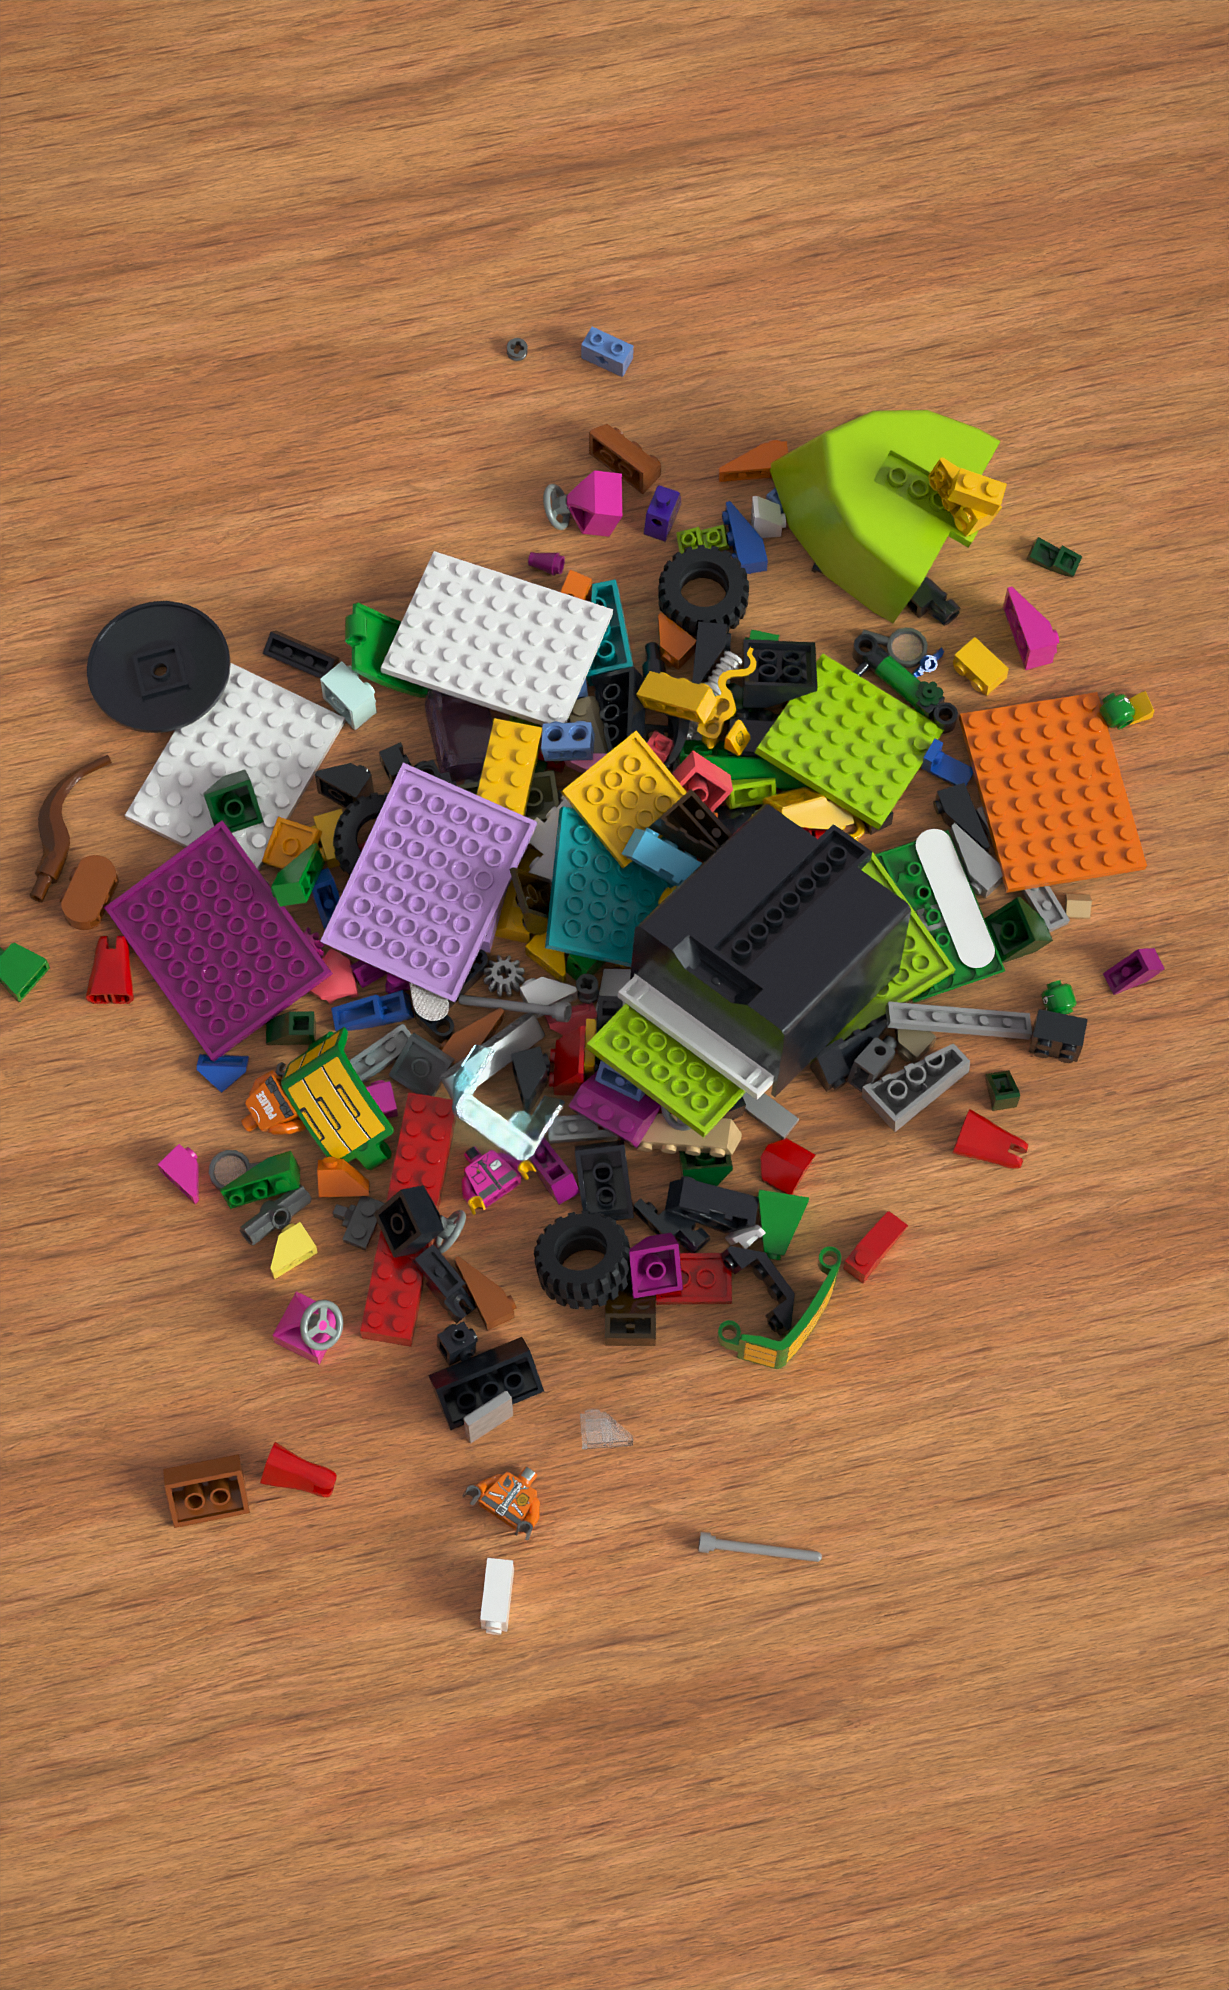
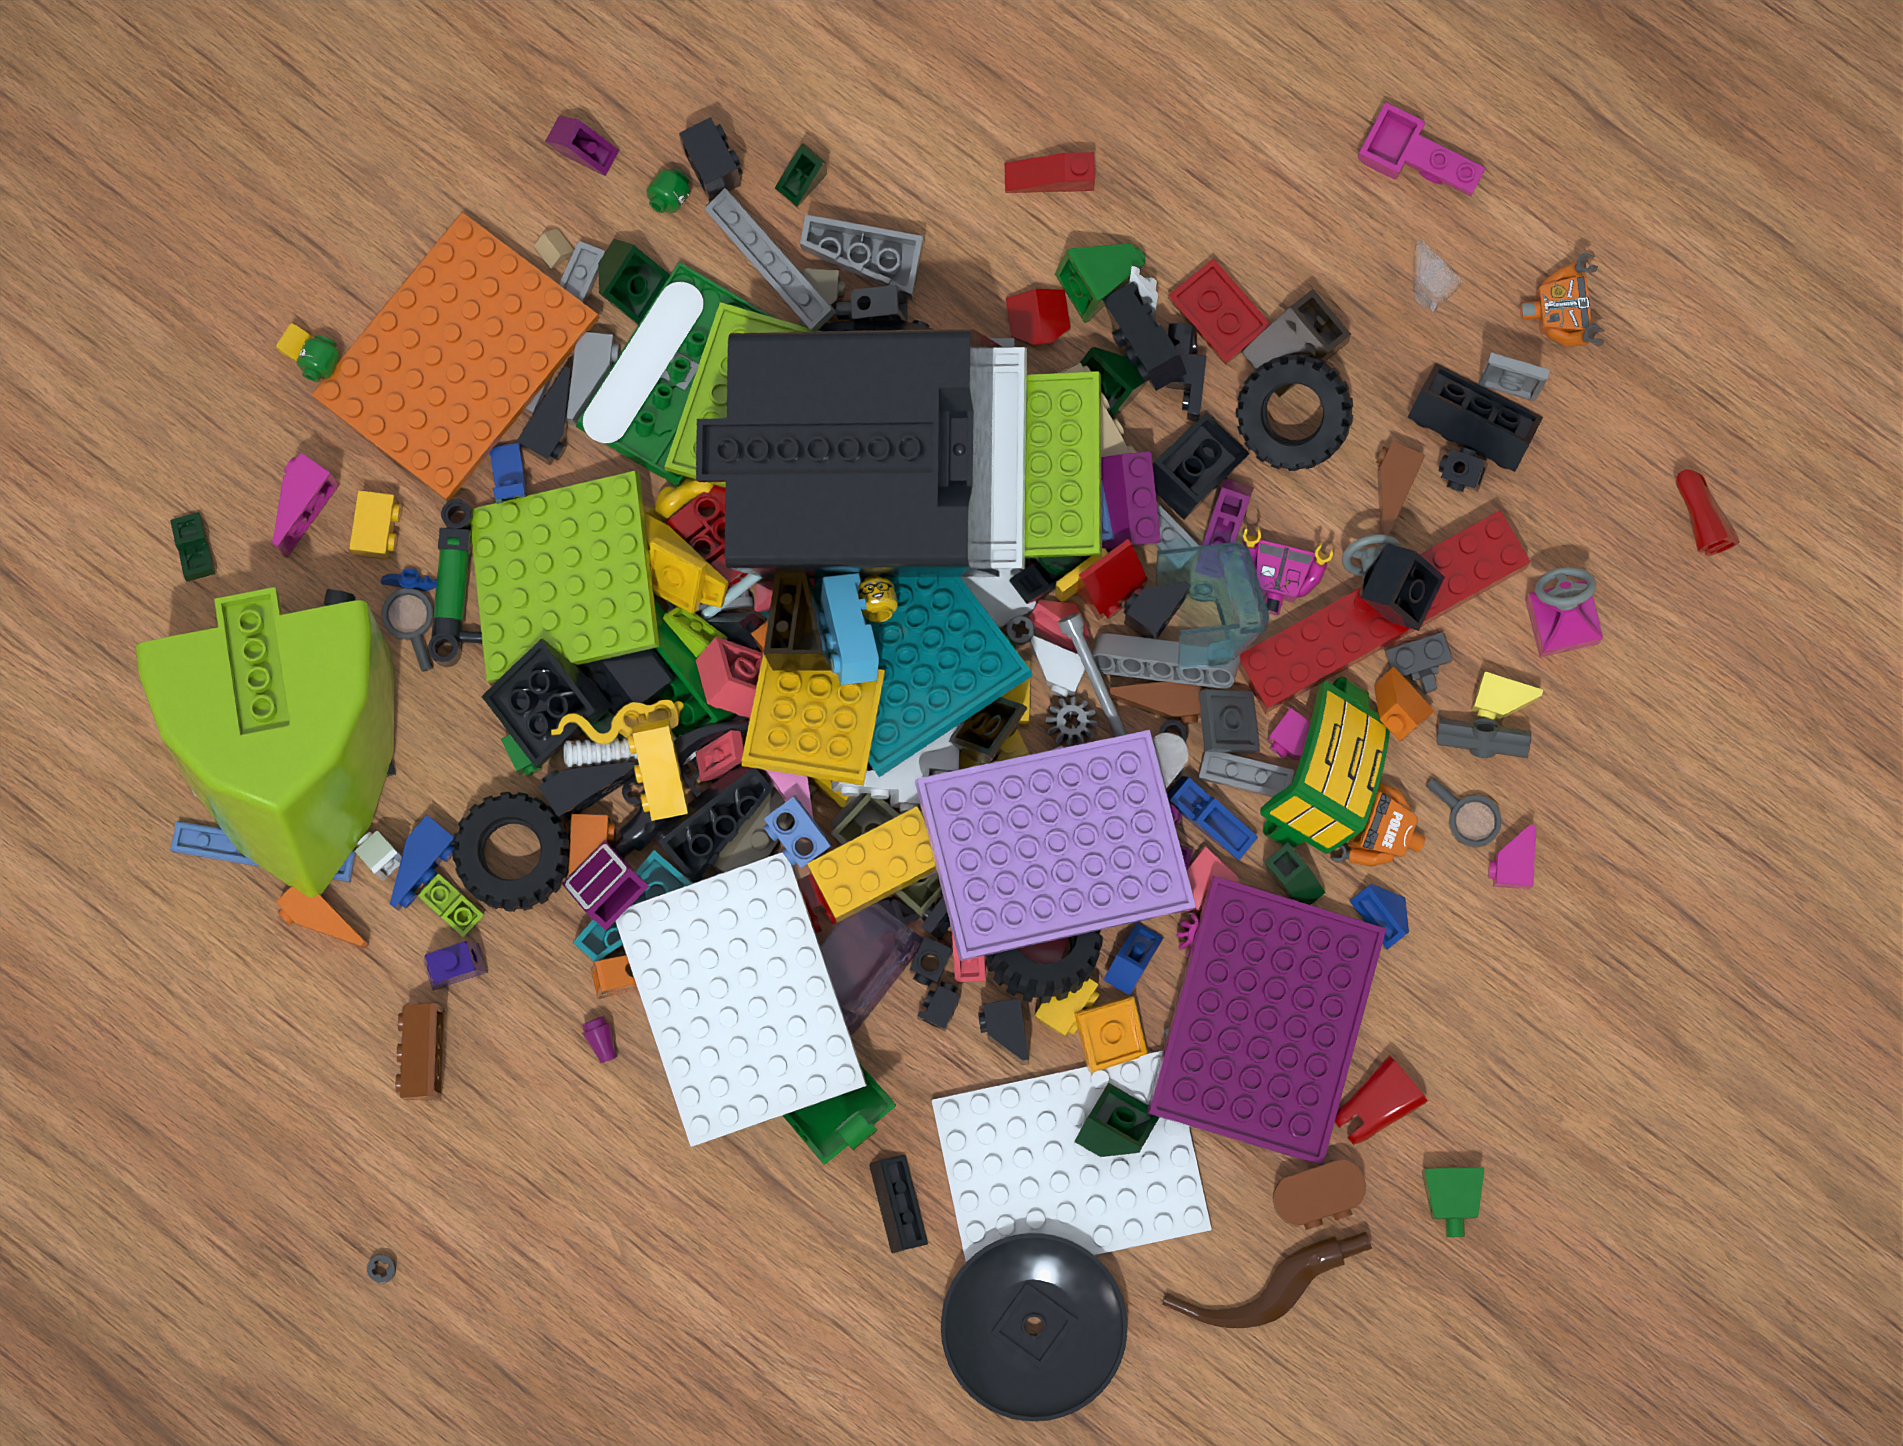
camera: 125 degrees left, 10 degrees up
(206, 1491) = (1787, 585): dark orange slope -> none
(266, 1179) = (1454, 773): green slope -> none
(298, 878) = (1148, 986): green slope -> none
(348, 695) = (911, 1115): light aqua brick -> none
(444, 1283) = (1422, 519): black plate -> none
(497, 1595) = (1662, 243): white brick -> none
(593, 504) = (505, 1039): dark pink piece -> none
(607, 351) = (313, 1169): medium blue brick -> none
(633, 619) = (605, 885): none -> magenta brick
(655, 1266) = (1242, 344): magenta slope -> none
(709, 1543) = (1452, 107): light grey piece -> none
(712, 1483) = (1397, 142): none -> dark pink plate
(737, 738) = (655, 679): yellow slope -> none
(738, 1258) = (1184, 207): black slope -> none
(778, 1353) = (1191, 165): green panel -> none
(929, 698) = (453, 551): dark green plant -> none
(965, 518) = (241, 606): yellow slope -> none
(976, 492) = (236, 589): yellow brick -> none
(988, 1142) = (865, 151): red piece -> none

